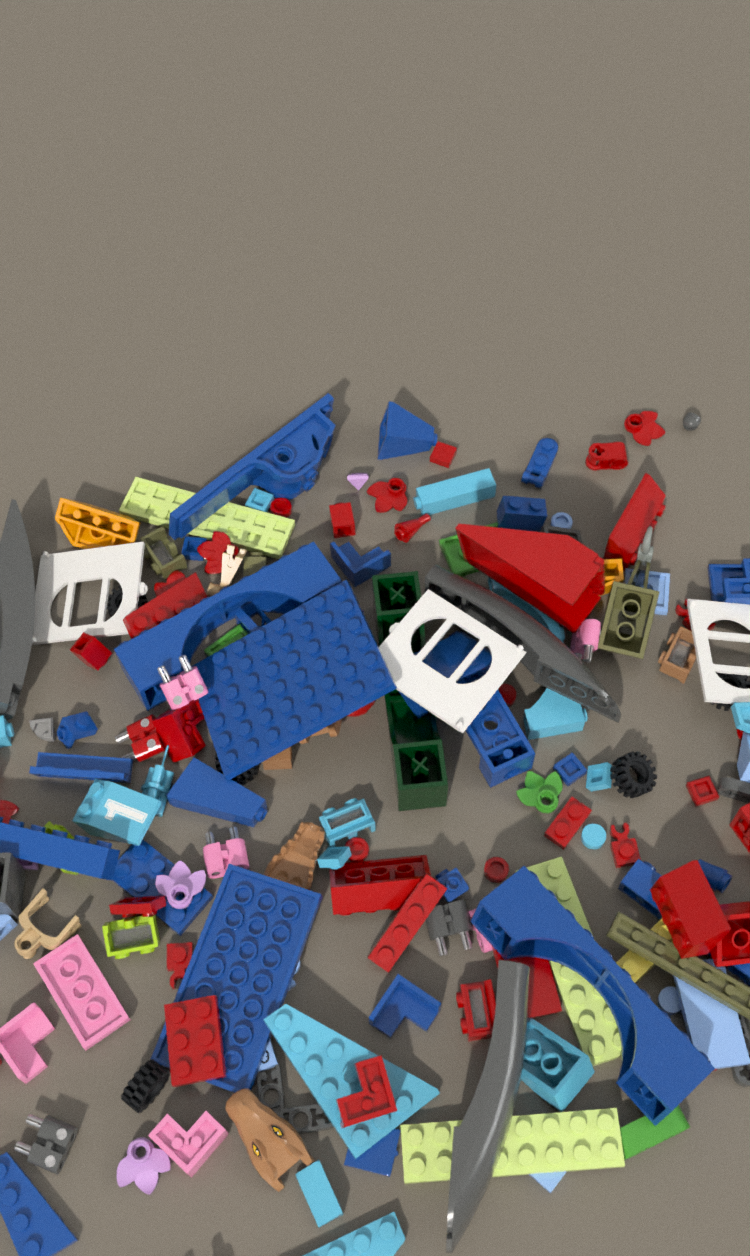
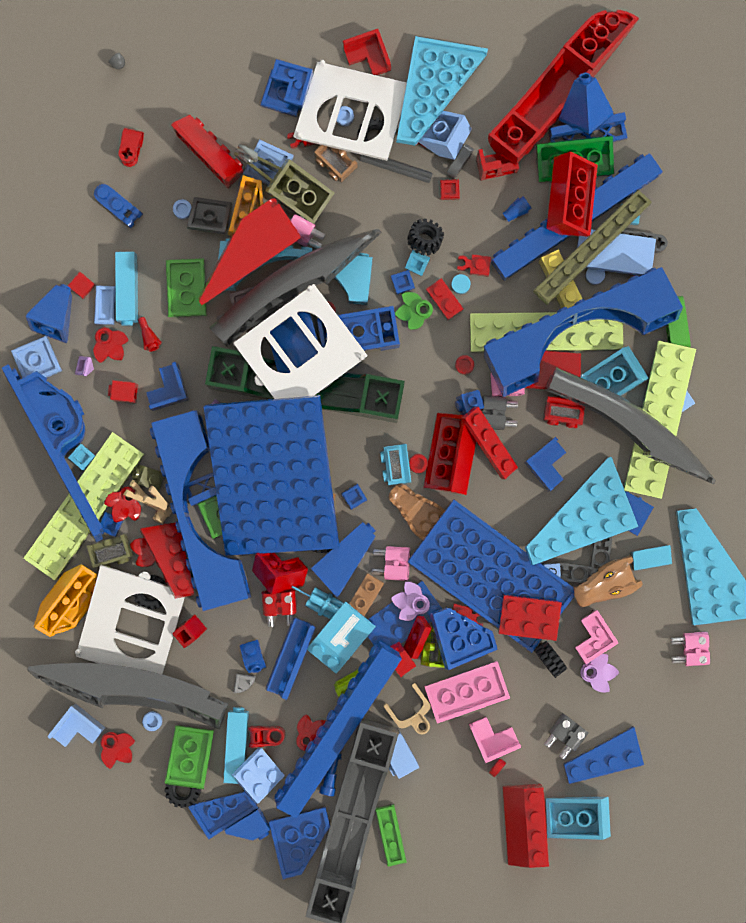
camera: 75 degrees left, 25 degrees up
(105, 892) = (406, 663): none -> red brick
(147, 958) = (460, 638): none -> blue plate
(178, 831) = (366, 594): none -> medium nougat brick
(184, 687) = (253, 562): bright pink piece -> none
(281, 507) = (92, 440): red tile -> none
(295, 788) = (354, 496): none -> blue tile
(334, 857) = (422, 482): medium azure plate -> none
(352, 437) = (36, 357): none -> light blue tile
(374, 1099) = (610, 502): red panel -> none
(427, 477) = (105, 305): none -> light blue tile
(521, 513) = (168, 240): blue brick -> none
(644, 427) = (111, 101): red plate -> none
(690, 910) = (548, 239): red slope -> none
(703, 726) = (399, 167): none -> dark grey axle
(735, 652) = (345, 116): none -> light blue tile

